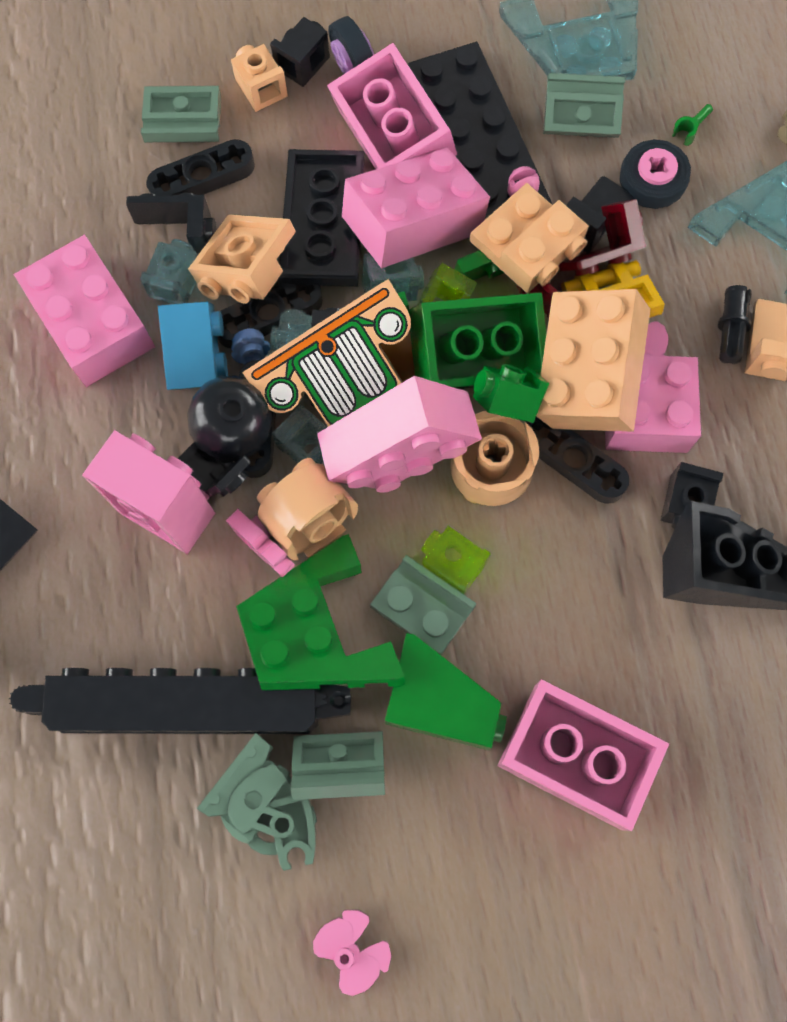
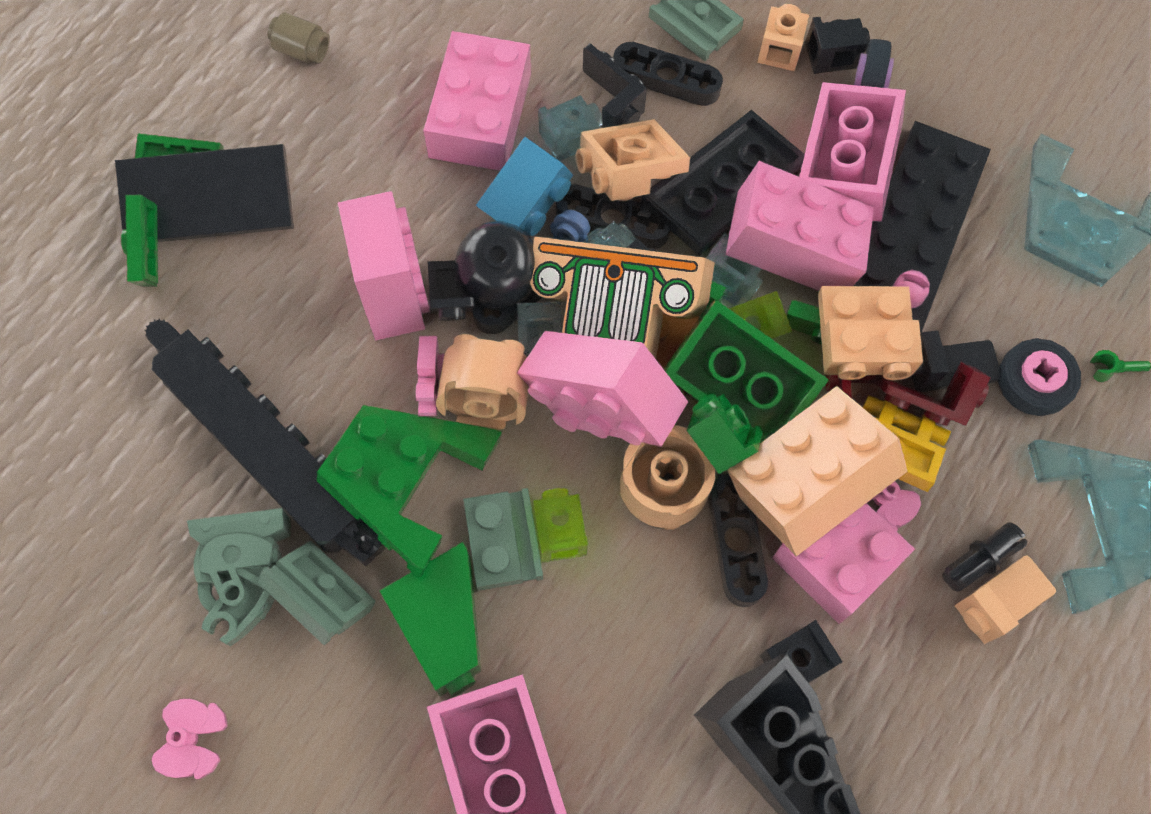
camera: 40 degrees right, 5 degrees down
(583, 105) = (1030, 271): sand green plate -> none

